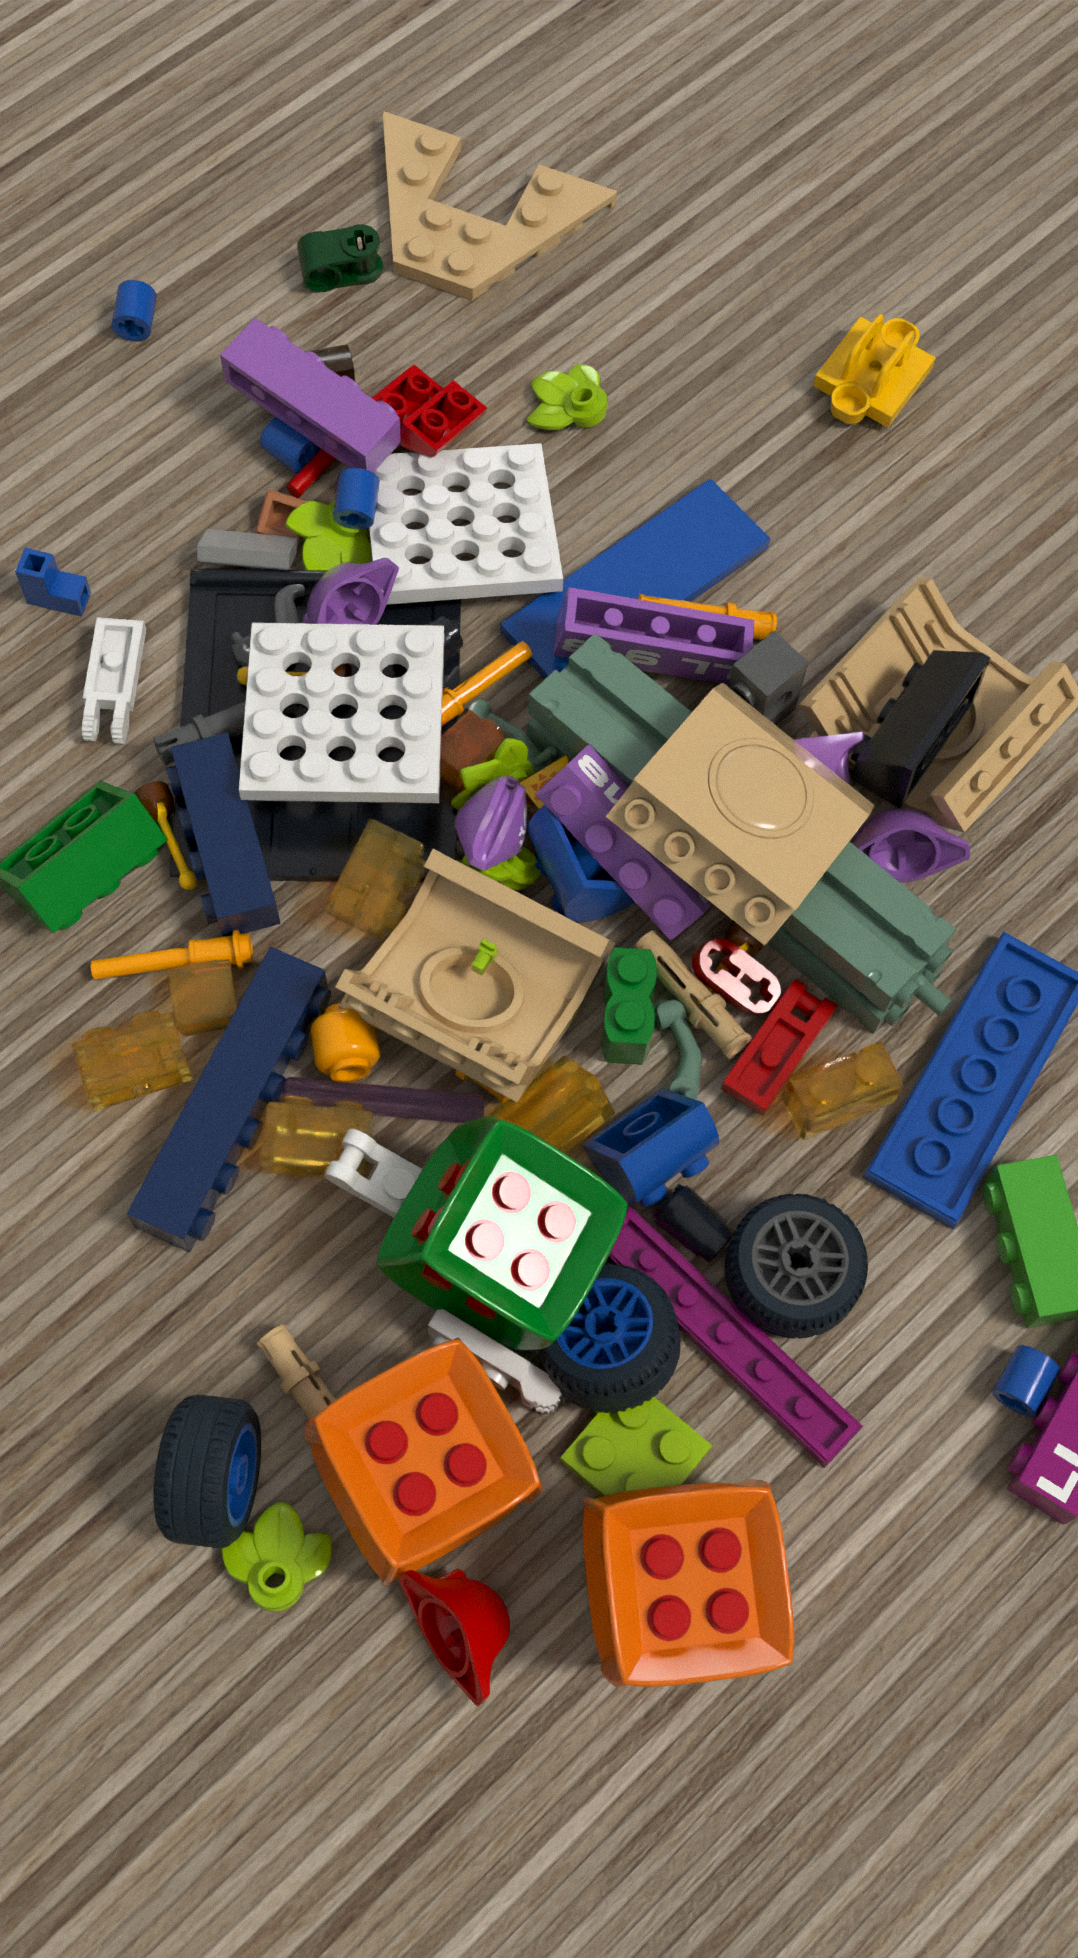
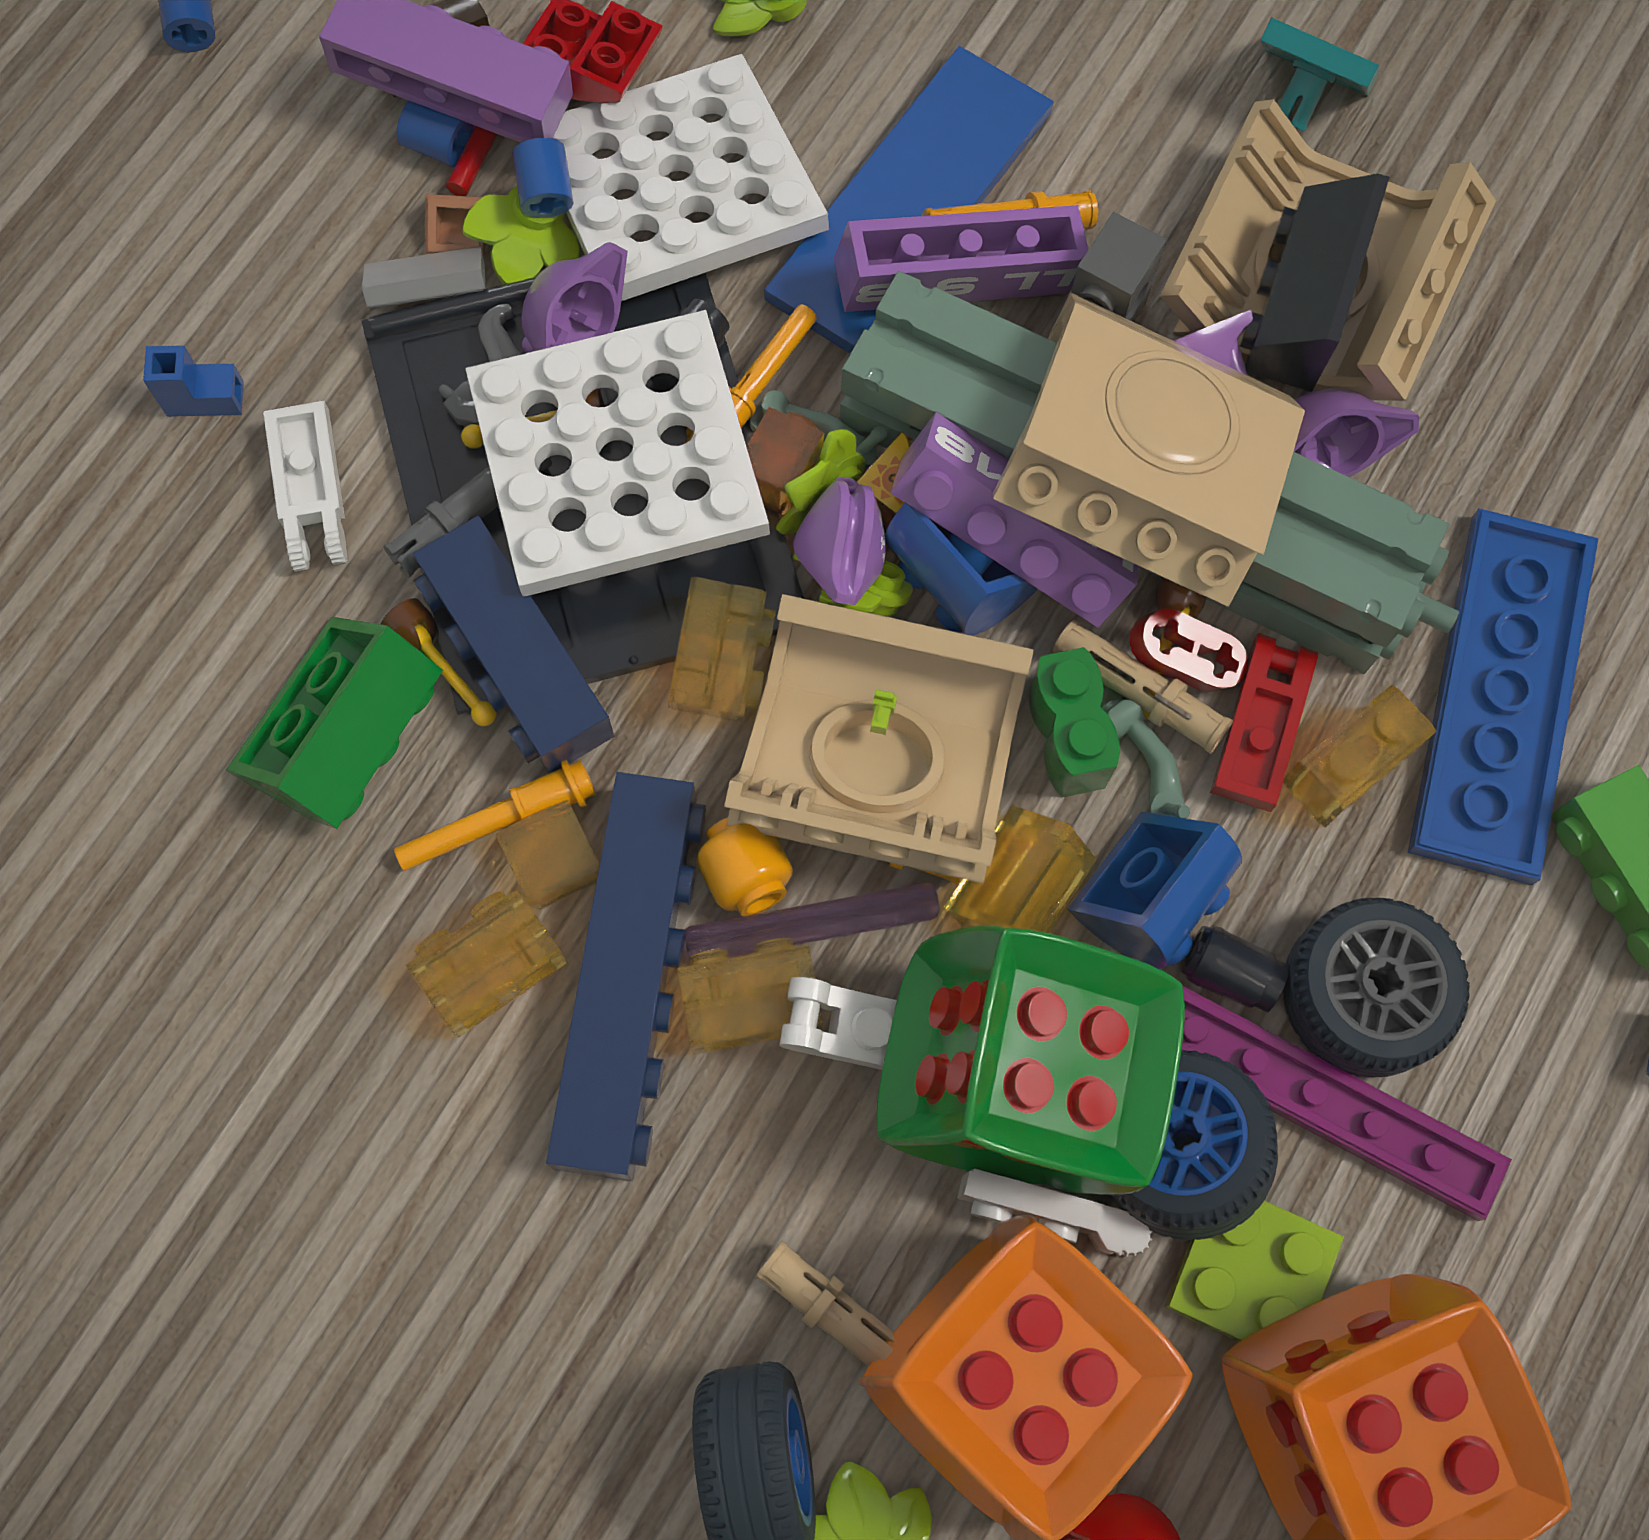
camera: 15 degrees left, 5 degrees up
(980, 563) = (1316, 65): none -> teal tile

